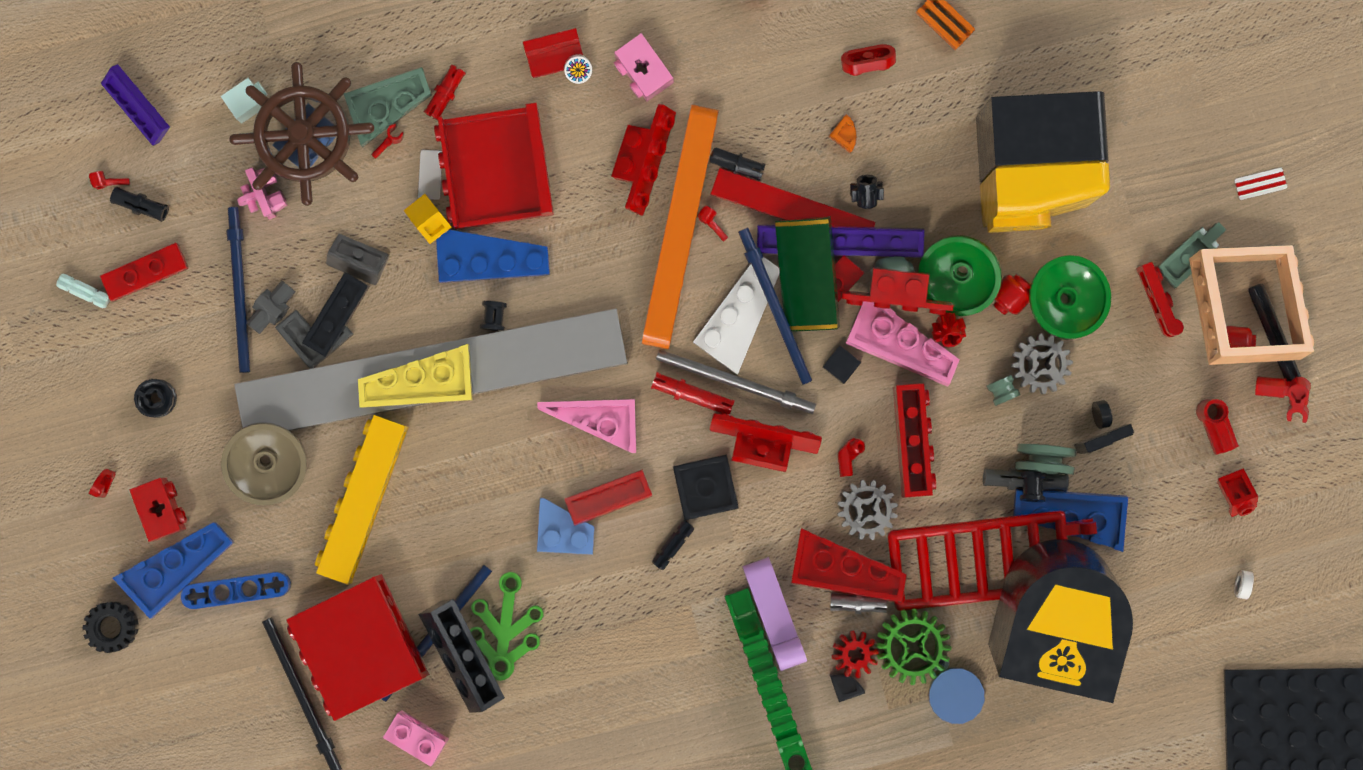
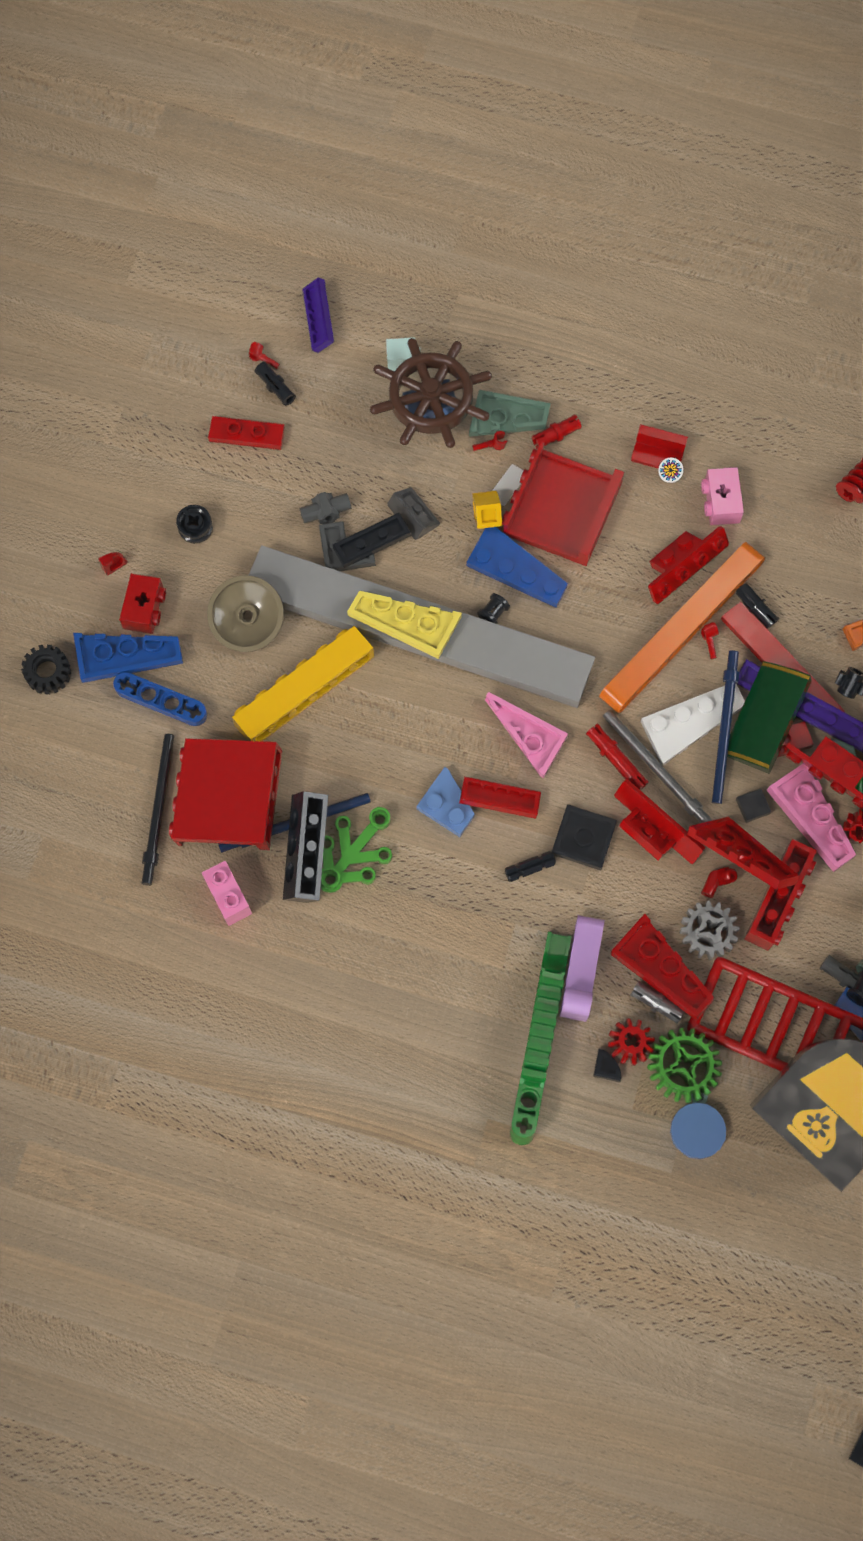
camera: 30 degrees right, 15 degrees down
(83, 290) = (192, 420): light aqua axle -> none
(235, 236) = (331, 446): dark blue bar -> none
(268, 203) = (372, 435): bright pink hips -> none
(856, 422) = (744, 850): none -> red wing

